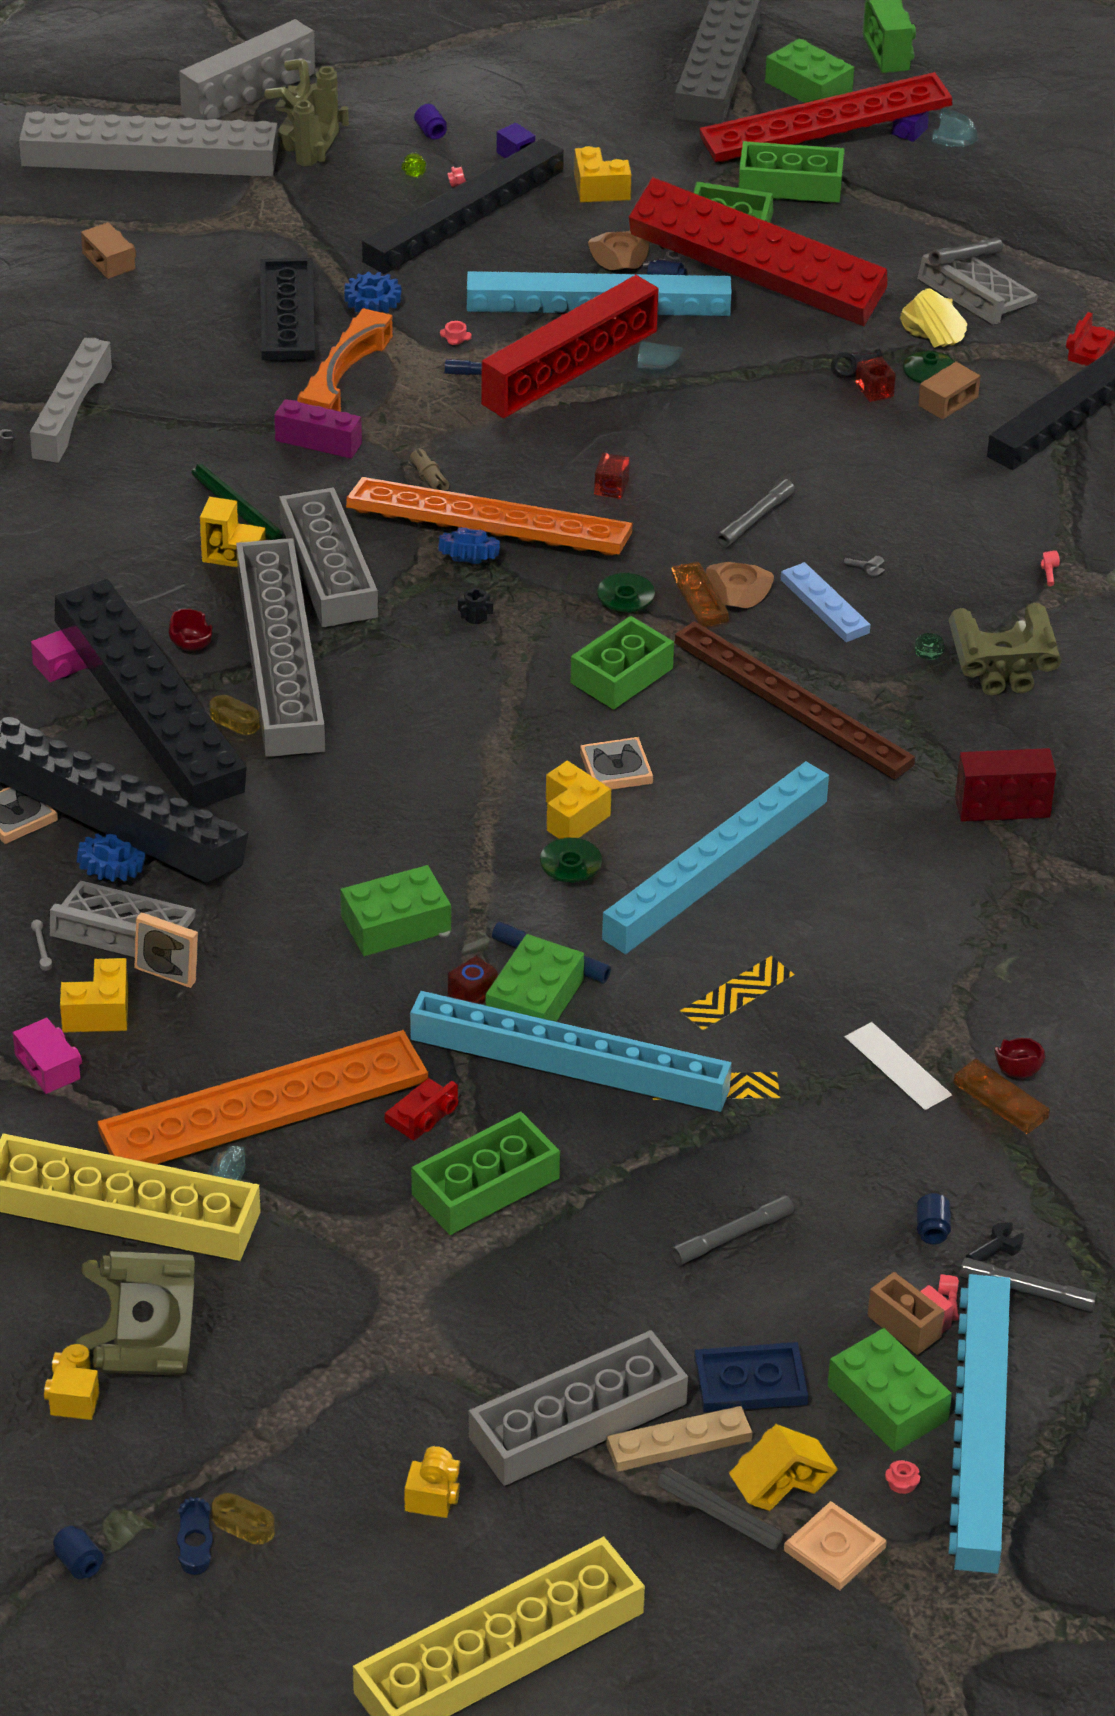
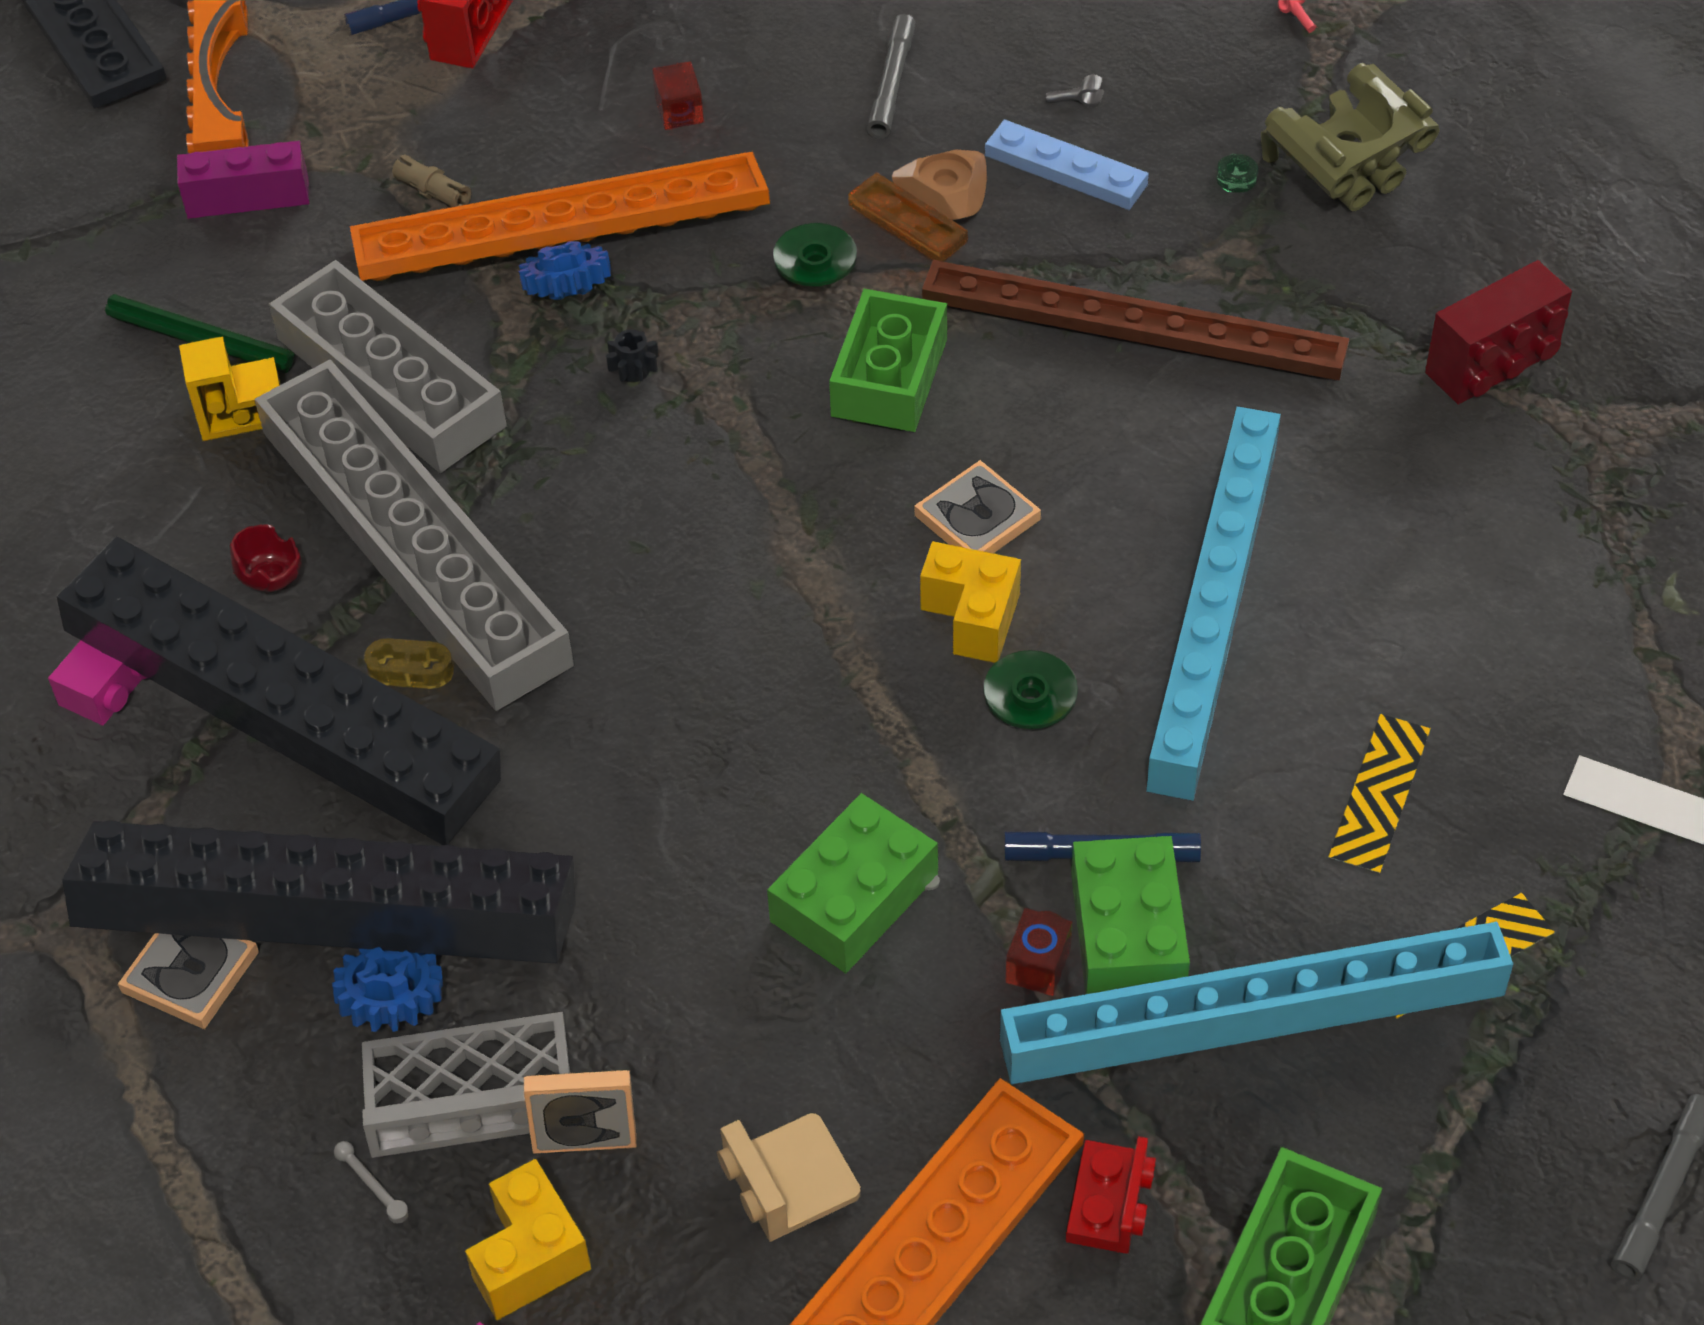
camera: 25 degrees left, 10 degrees up
(255, 1028) = (788, 1174): none -> tan bracket

